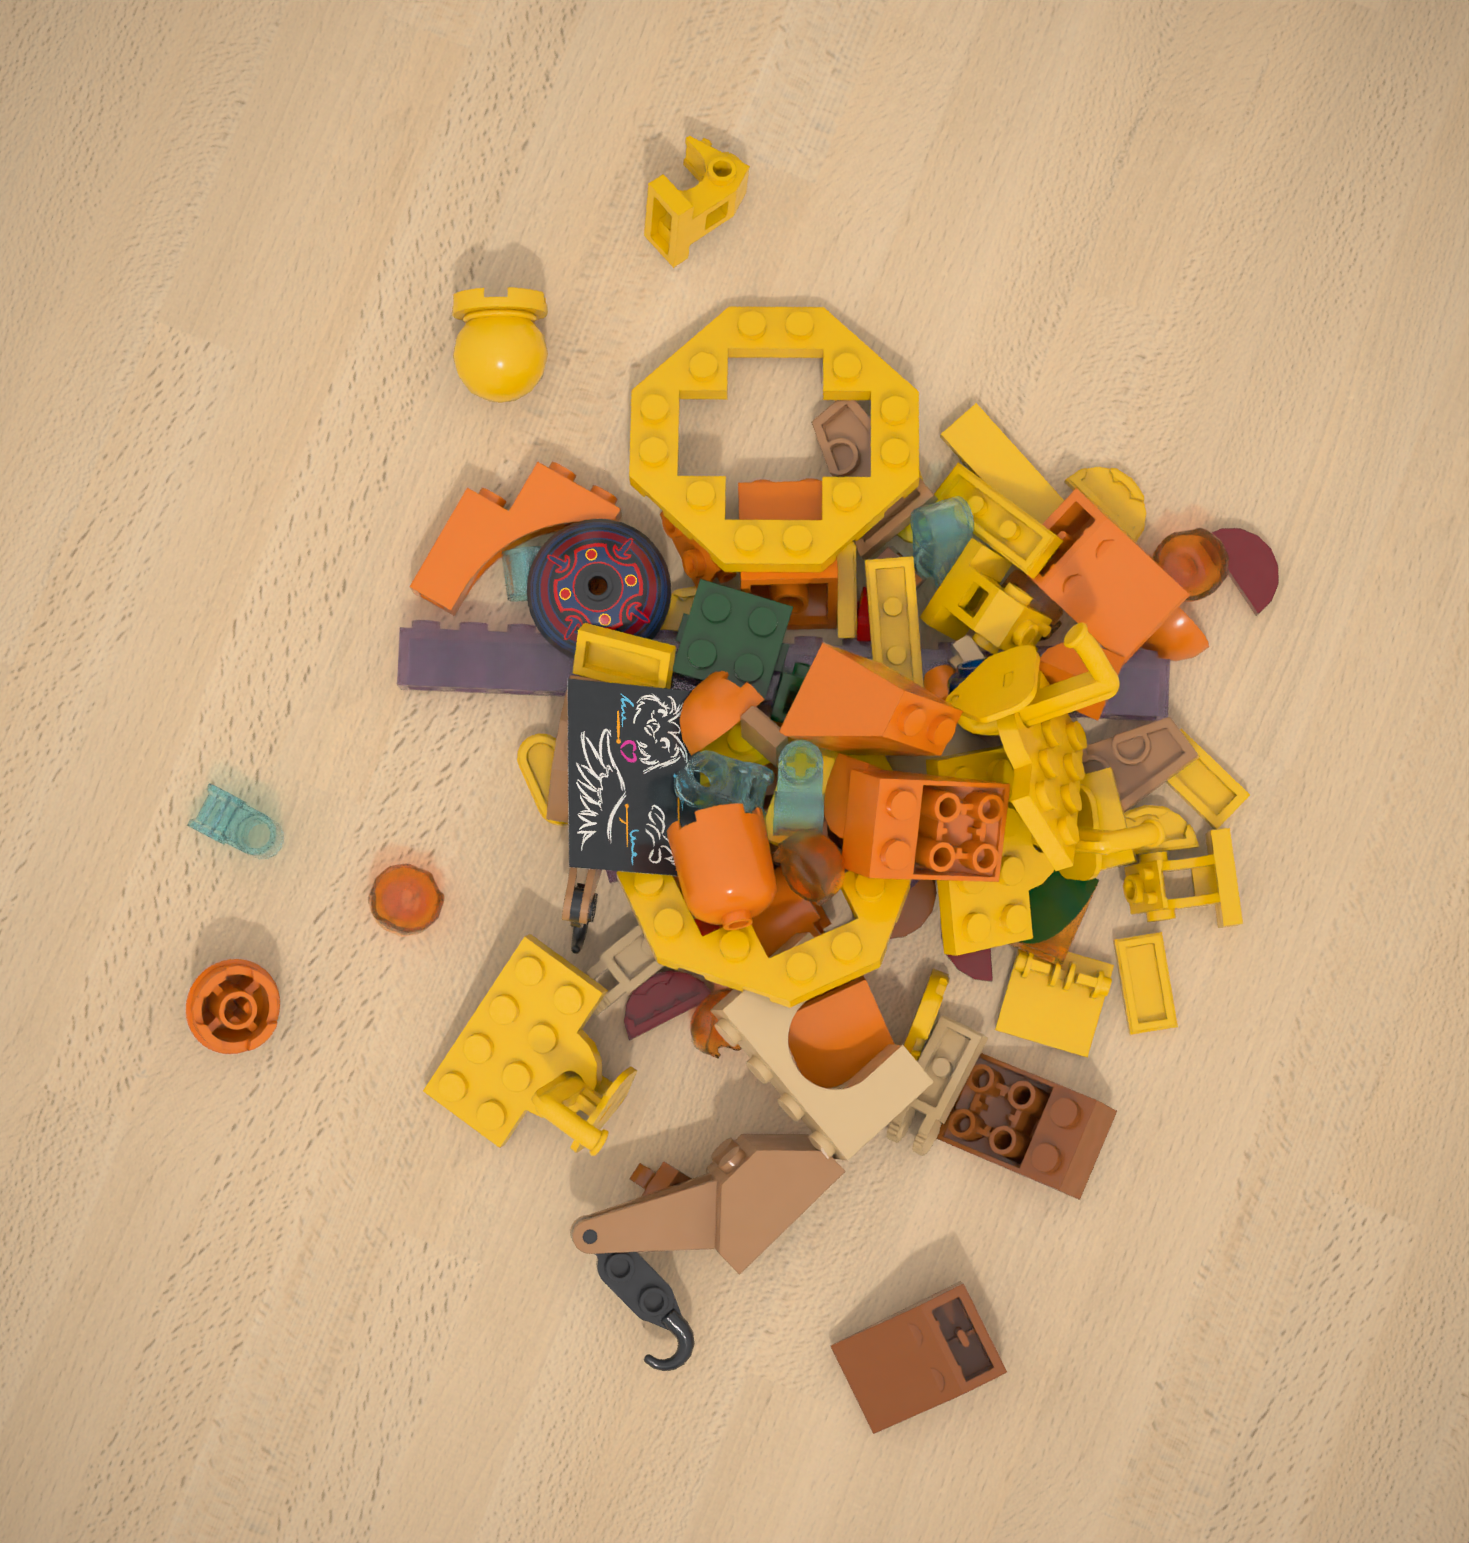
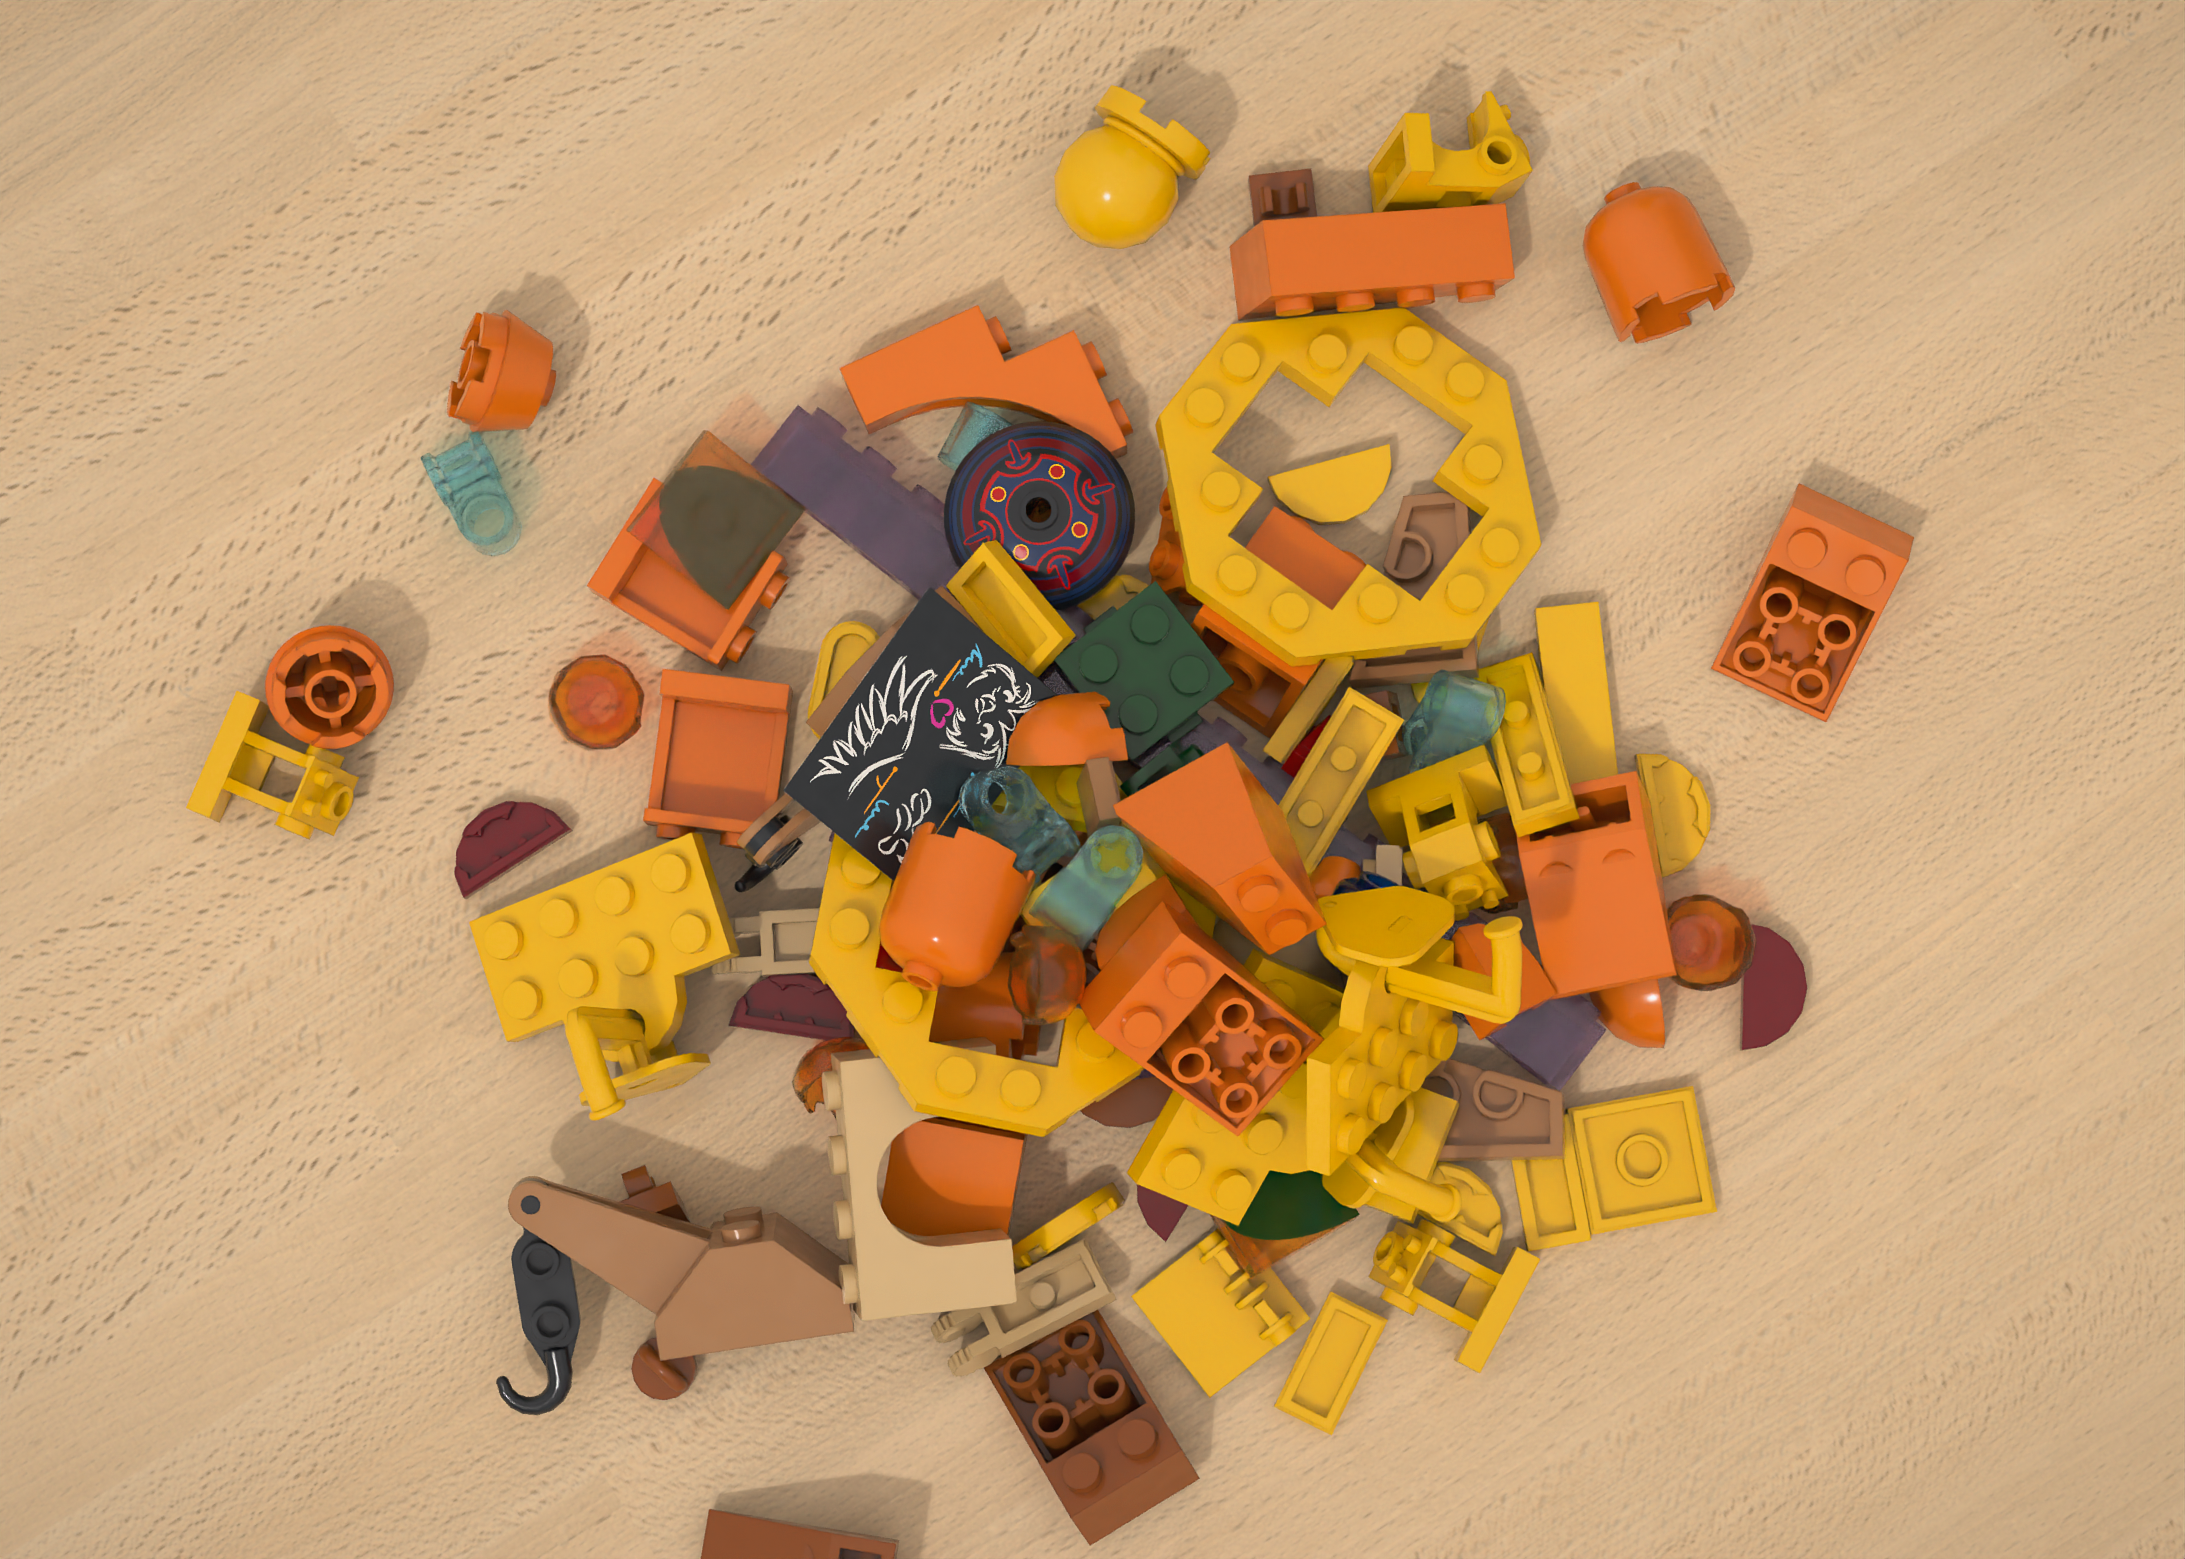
camera: 40 degrees right, 0 degrees up
(202, 738) = (501, 374): none -> orange cone
(211, 1094) = (241, 765): none -> yellow tile
(399, 734) = (715, 519): none -> clear orange tile
(407, 781) = (668, 603): none -> orange panel
(407, 1026) = (503, 840): none -> dark red tile
(504, 879) = (717, 754): none -> orange panel
(609, 295) = (1282, 195): none -> dark orange tile
(688, 291) = (1371, 260): none -> orange wedge
(740, 1287) = (662, 1378): none -> dark orange tile
(765, 447) = (1334, 488): none -> yellow tile
(862, 170) = (1653, 261): none -> orange cylinder
(1107, 310) = (1813, 602): none -> orange slope
(1245, 724) = (1642, 1160): none -> yellow tile

